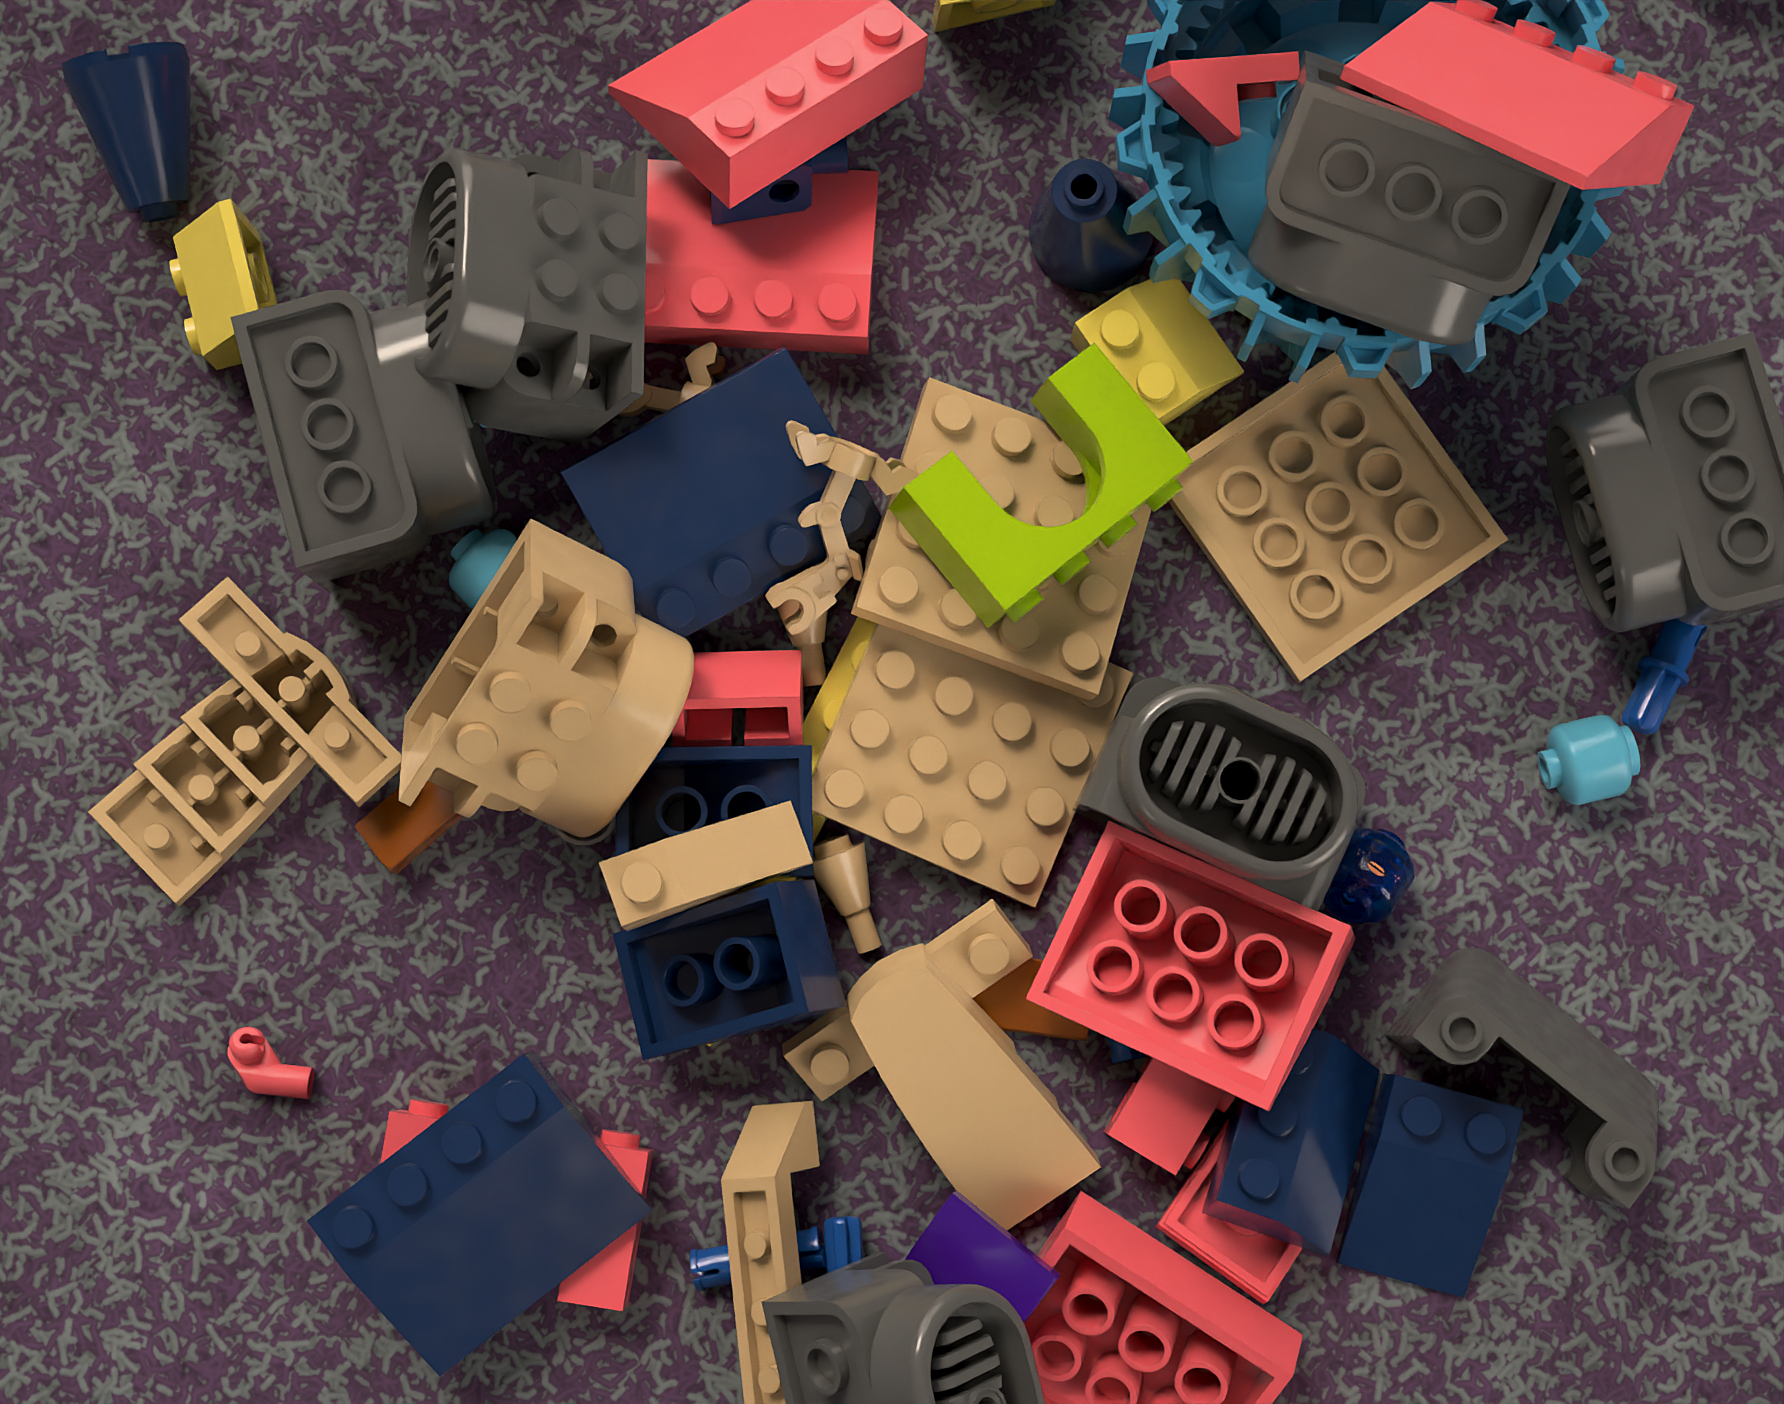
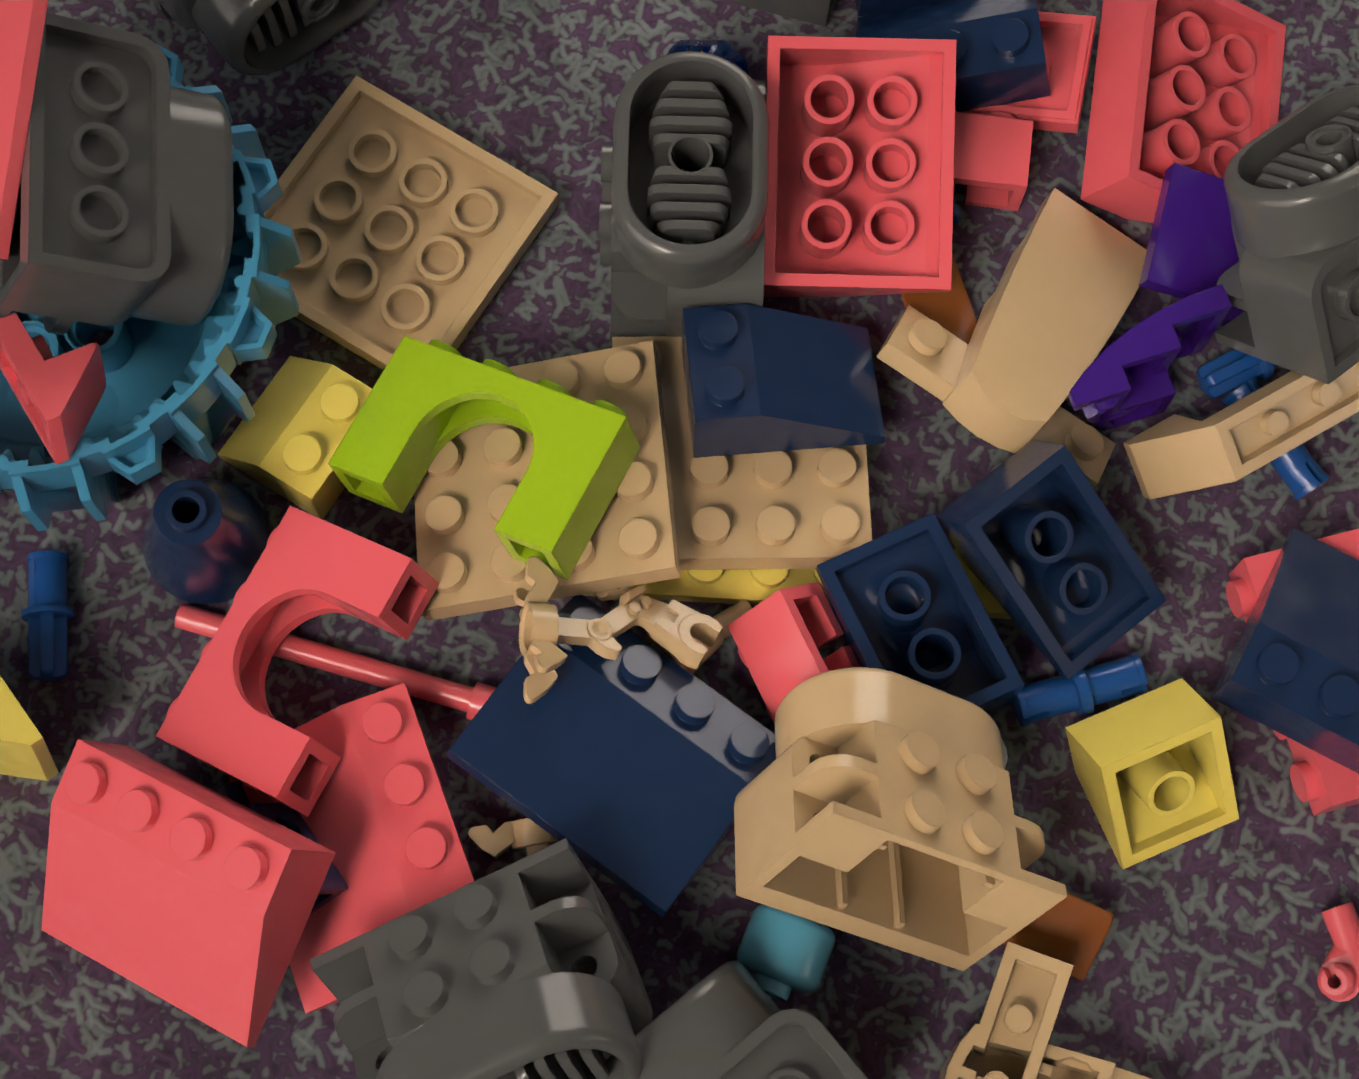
camera: 120 degrees left, 10 degrees down
(500, 974) = (1155, 771): none -> light yellow slope
(601, 962) = (1082, 691): none -> blue pin
(704, 864) = (981, 603): tan slope -> none
(839, 403) = (353, 665): none -> coral bar
(843, 876) = (918, 496): tan cone -> none
(872, 1145) = (1131, 374): none -> dark purple slope
(913, 177) = (300, 575): none -> coral arch
(1005, 794) = (776, 381): none -> dark blue slope
(1073, 66) = (47, 615): none -> blue axle

